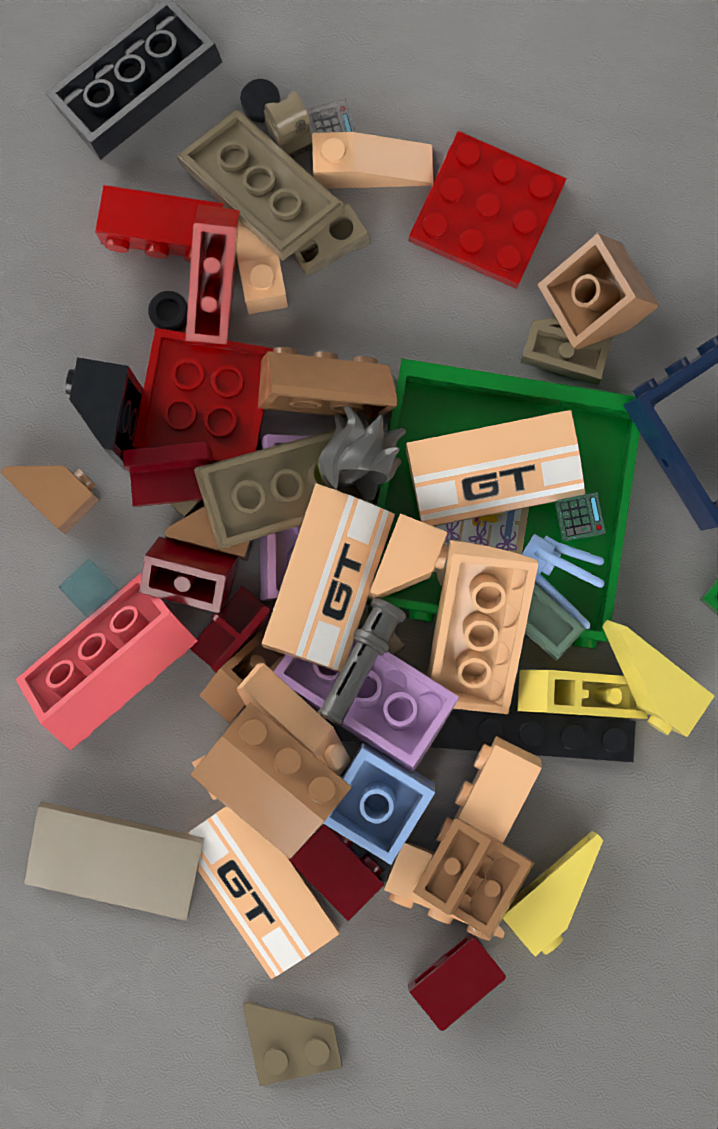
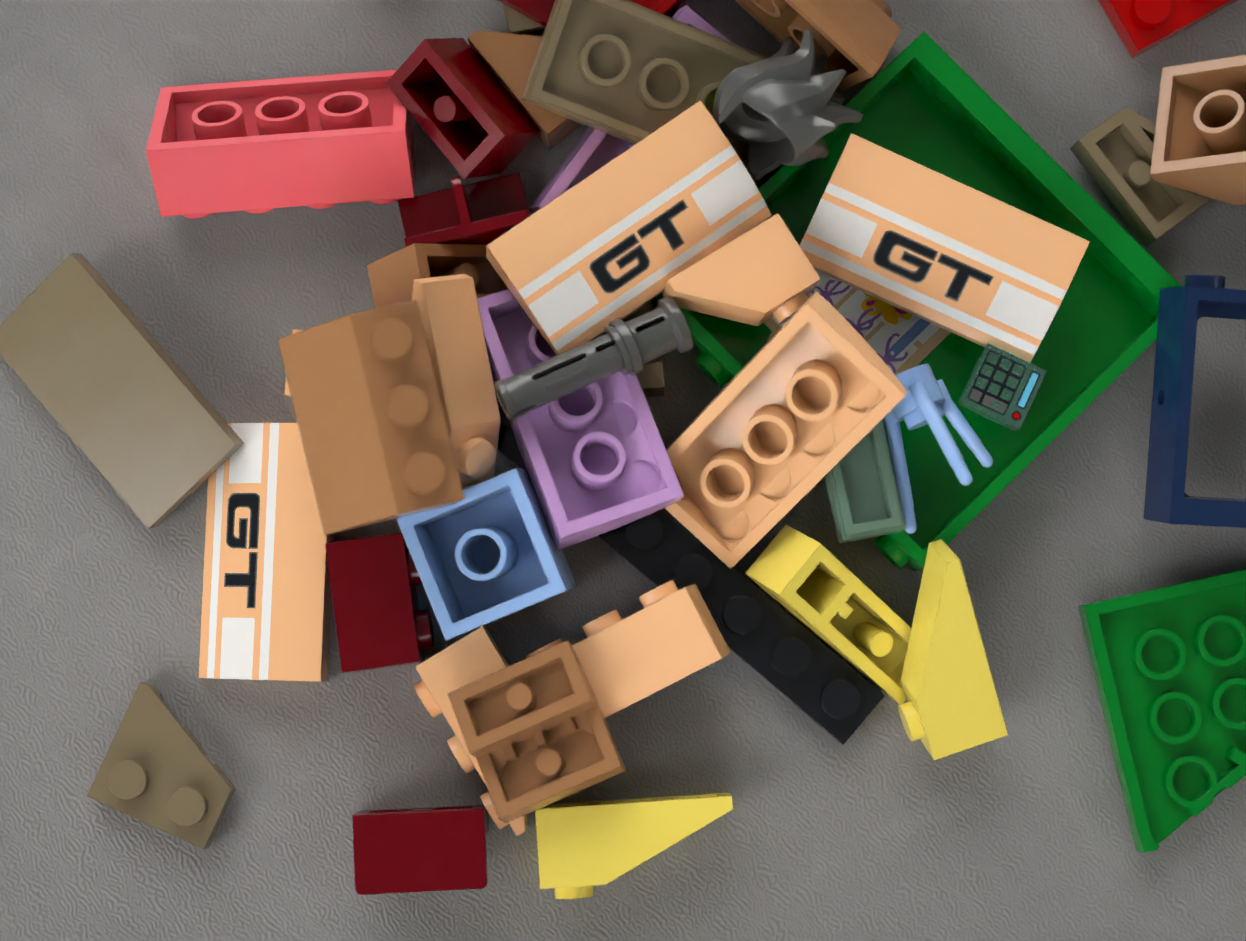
camera: 35 degrees right, 0 degrees up
(88, 588) = (330, 40): clear light blue tile -> none

